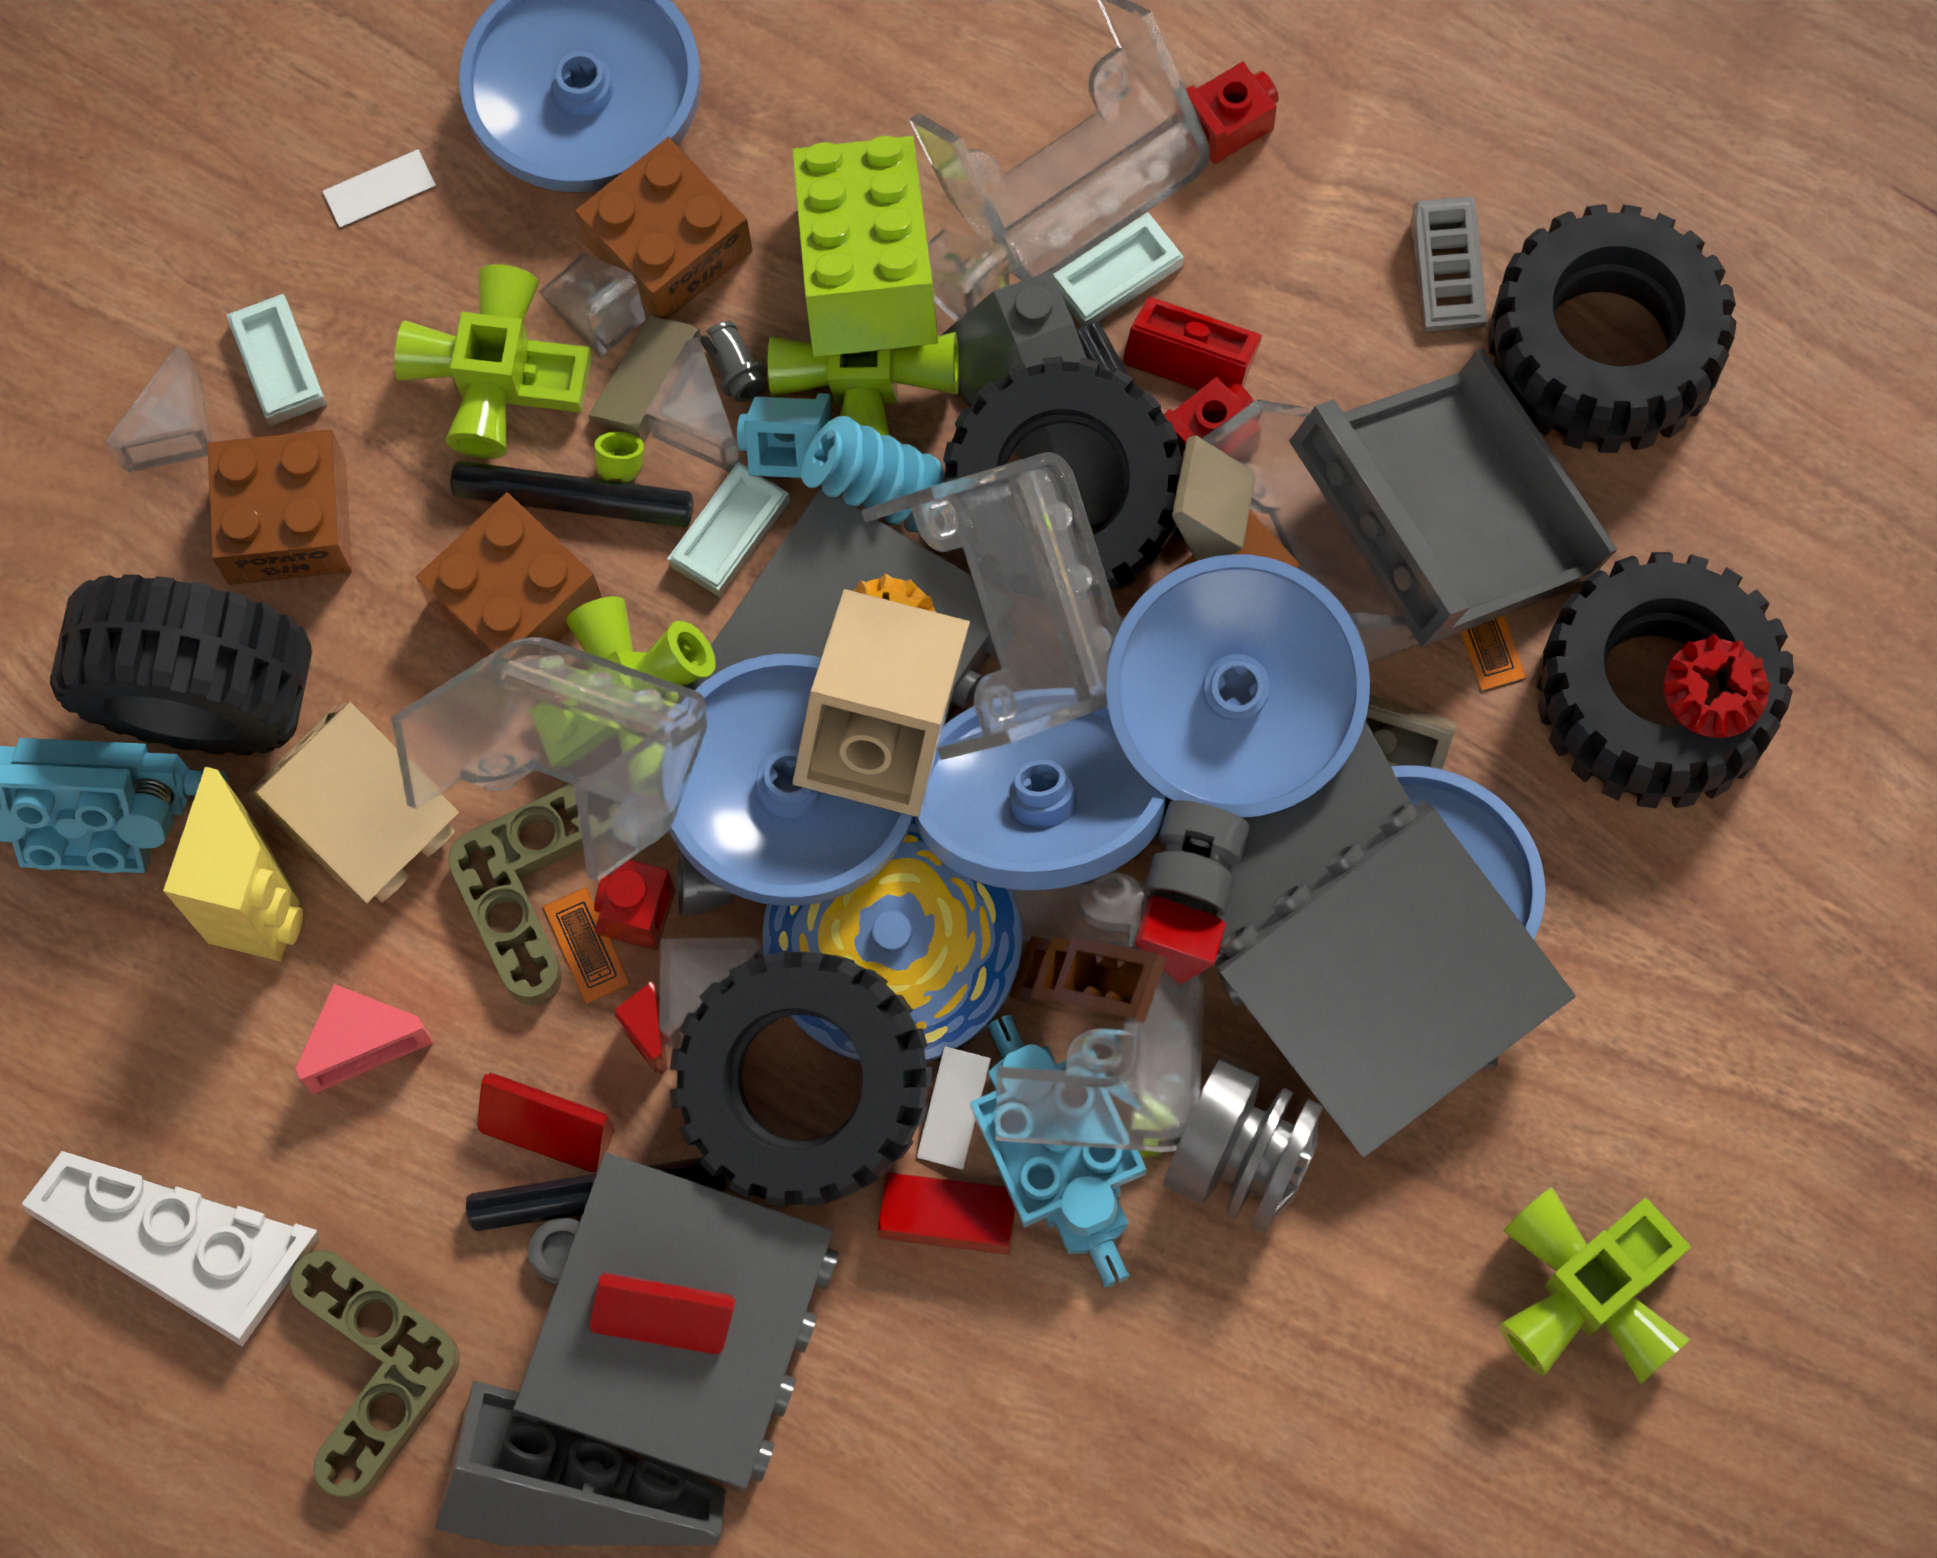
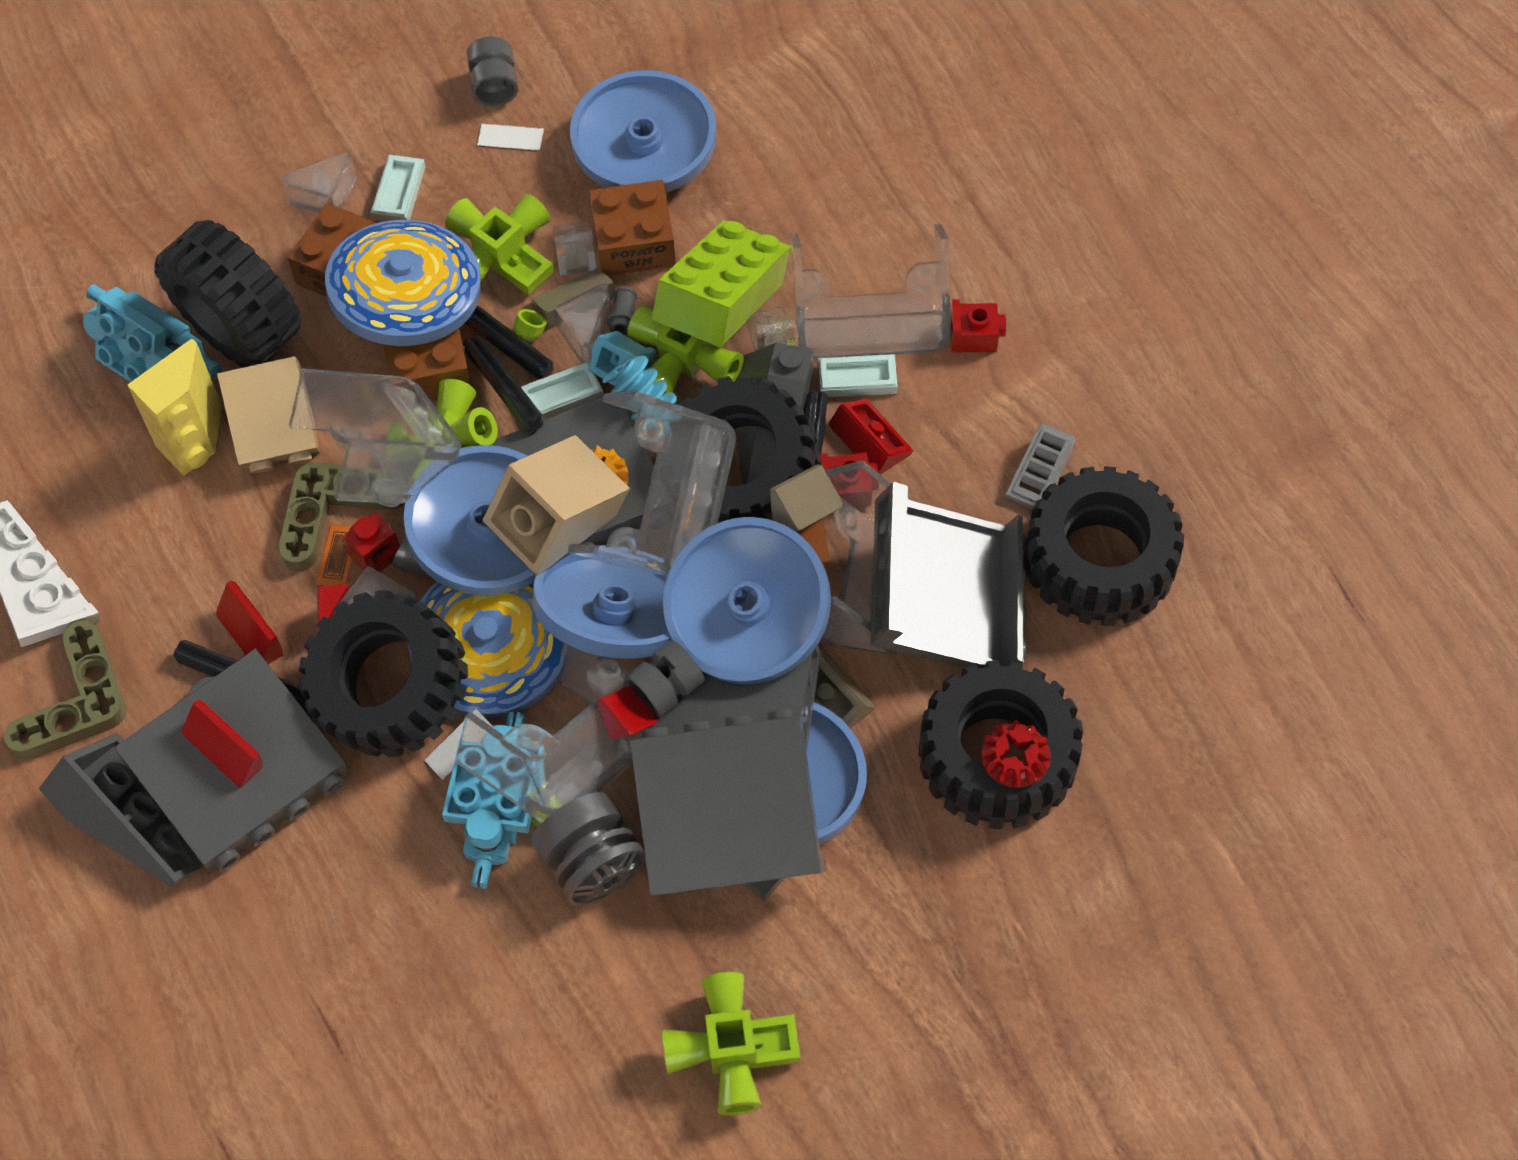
camera: 30 degrees right, 10 degrees down
(294, 110) = (492, 71): none -> dark grey wheel
(356, 1037) = (185, 530): coral slope -> none
(417, 501) = (403, 282): none -> dish
(654, 565) = (503, 383): none -> black axle
(946, 1213) = (412, 795): red slope -> none
(1089, 978) = (560, 703): reddish brown slope -> none
(1493, 653) = (922, 680): sticker -> none

